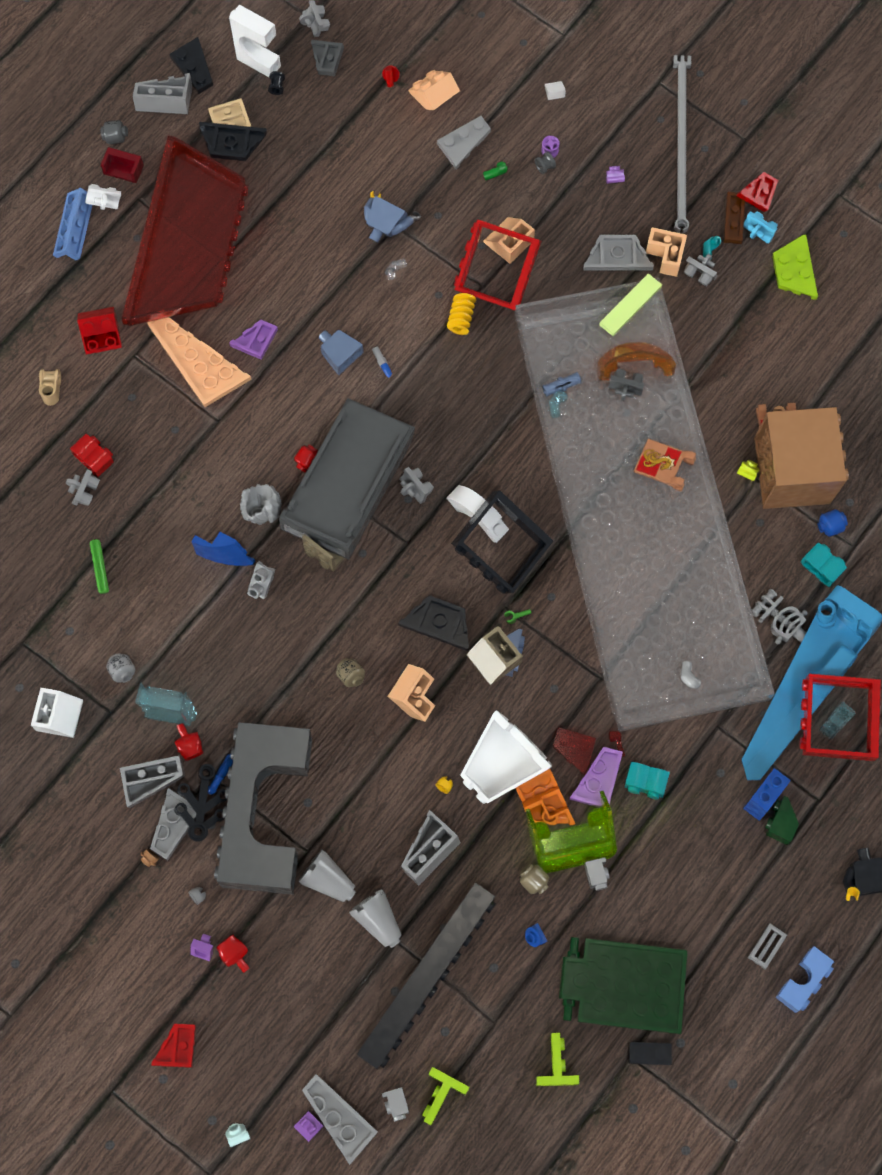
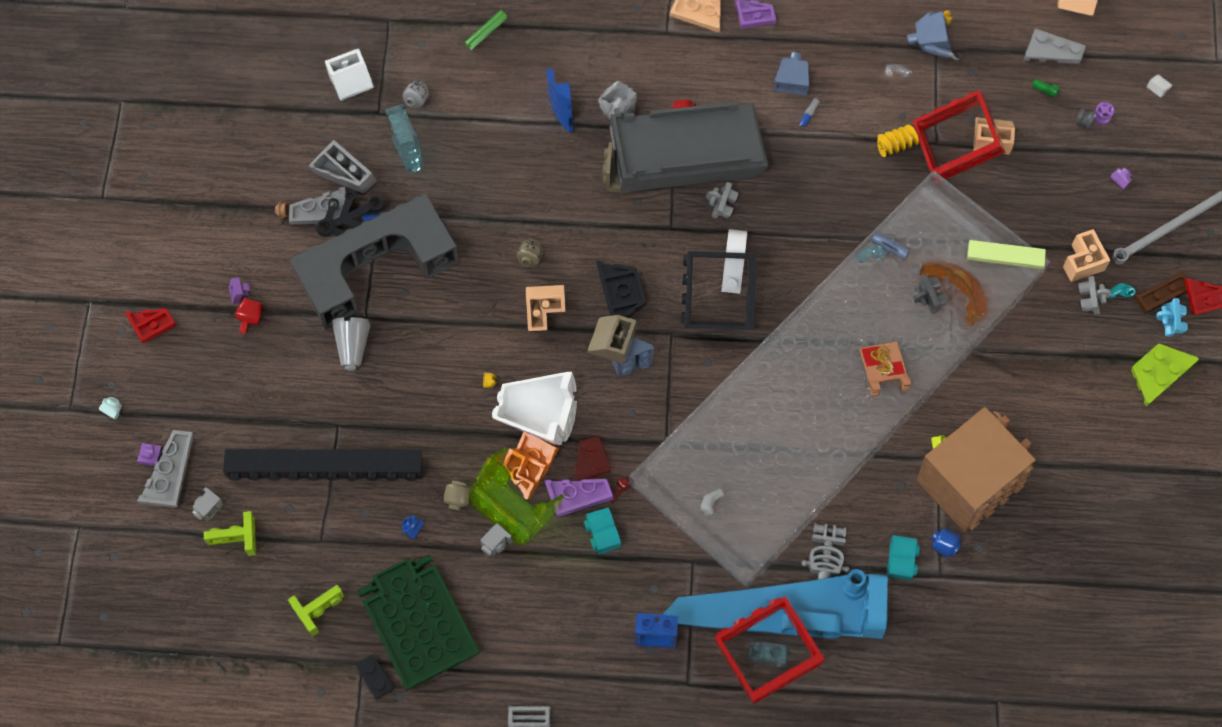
camera: 55 degrees right, 5 degrees down
(189, 744) = (389, 179): red piece -> none
(196, 895) = (277, 261): light grey hinge -> none
(260, 581) = (556, 142): light grey hips -> none
(378, 919) = (343, 398): light grey cone -> none
(429, 849) = (425, 400): light grey wedge -> none
(516, 615) = (668, 344): bright green hand -> none
(618, 253) = (1051, 223): light grey wing -> none
(784, 823) = (644, 663): dark green slope -> none

